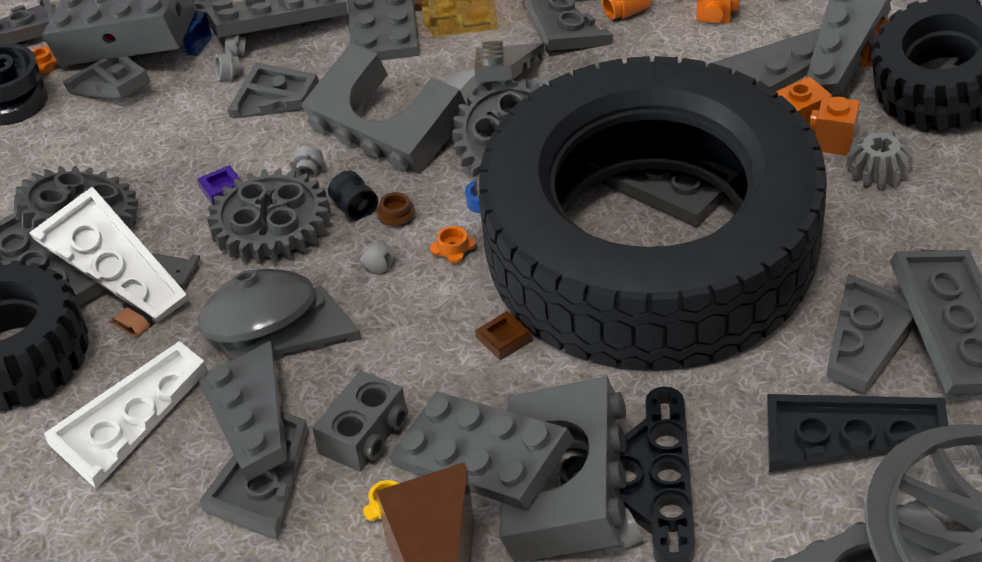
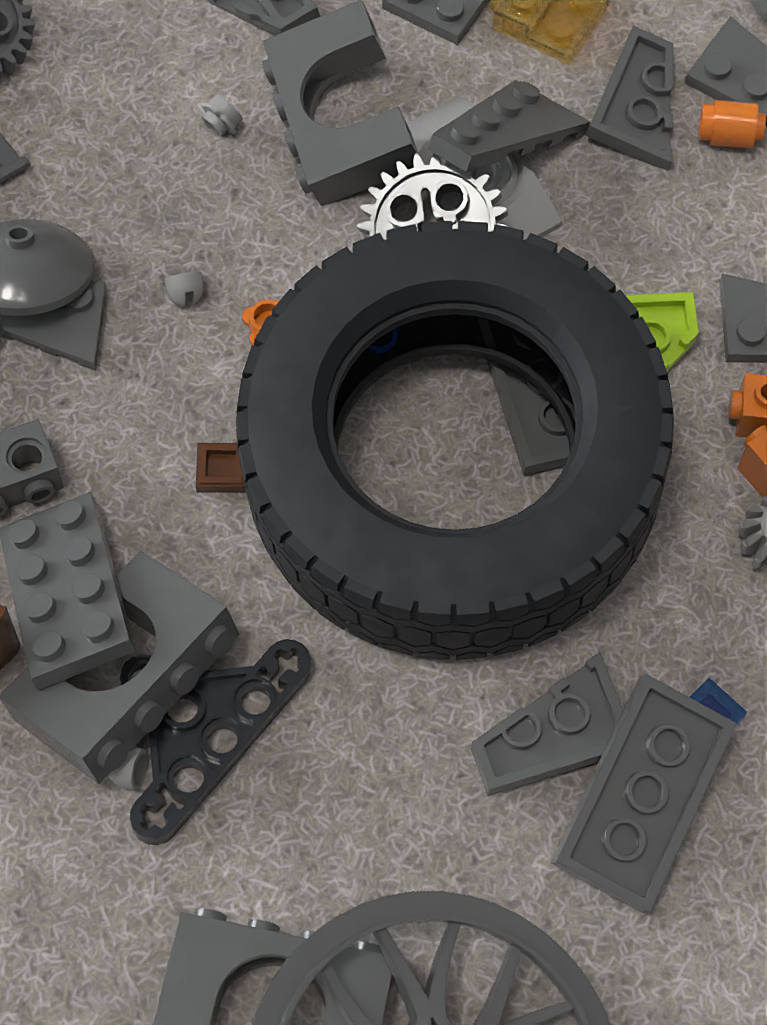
camera: 30 degrees right, 20 degrees up
(214, 182) = (122, 85): dark purple tile -> none
(293, 218) = (127, 160): dark grey gear -> none
(352, 195) = (223, 192): black wheel -> none
(395, 209) = (252, 239): reddish brown plate -> none
(839, 428) = (421, 816): black wing -> none

